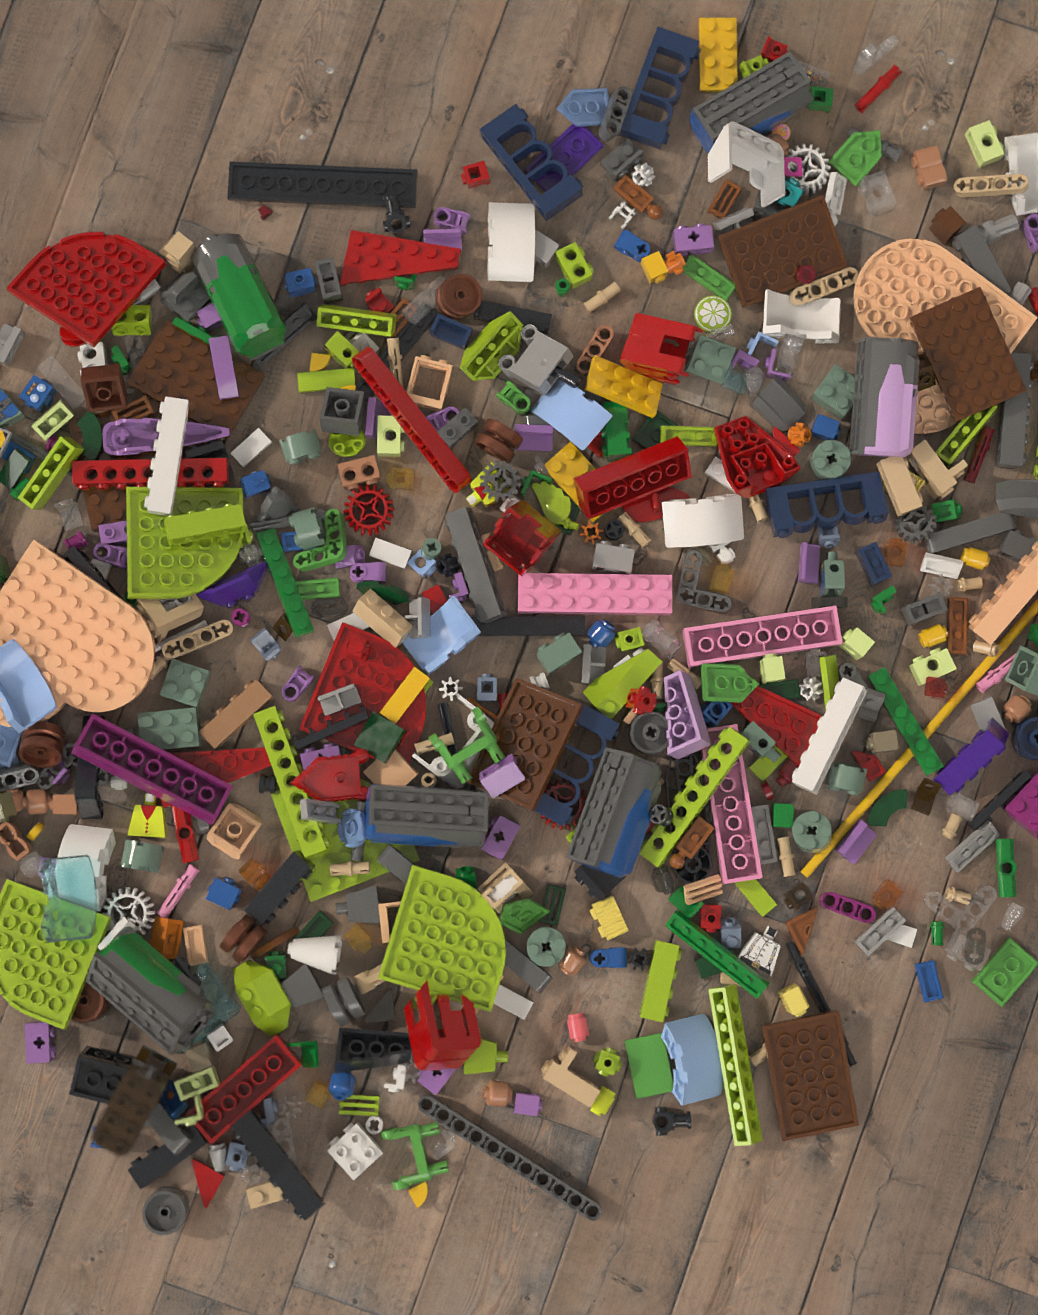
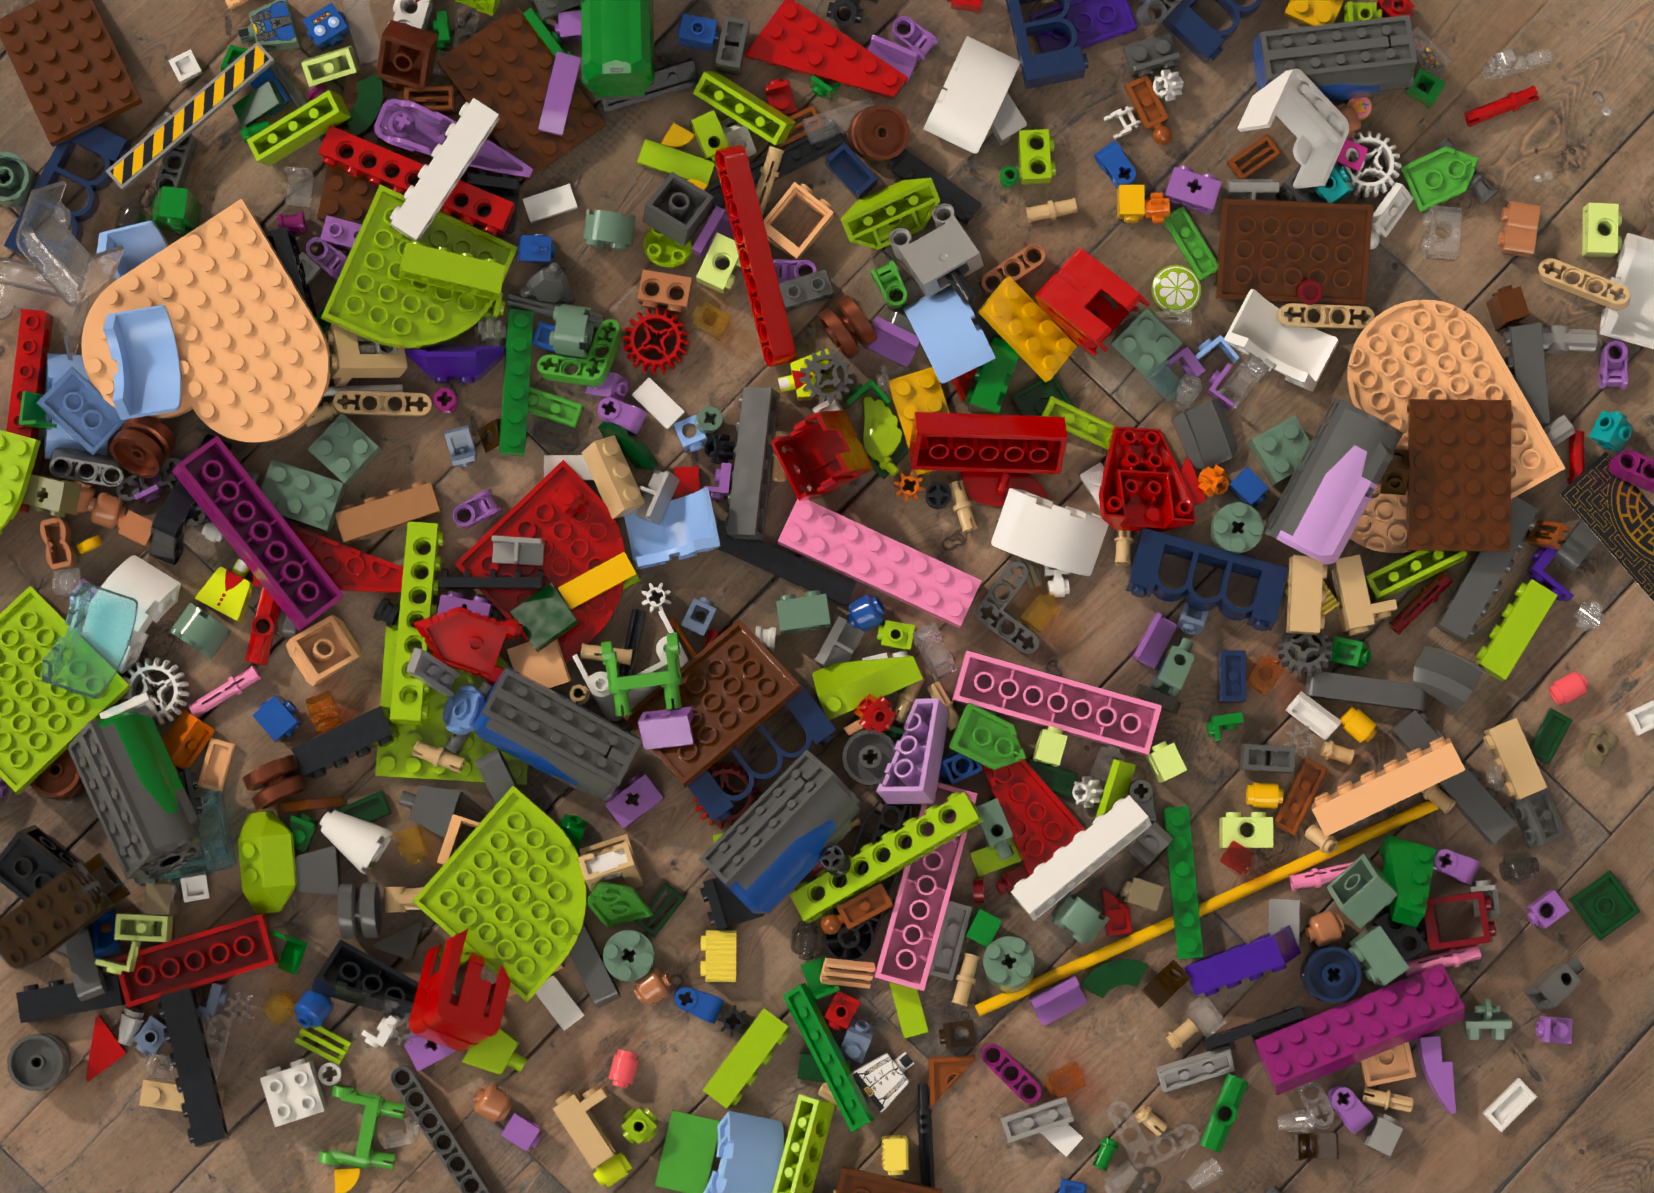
camera: 25 degrees right, 0 degrees up
(612, 559) = (919, 529): light grey brick -> none

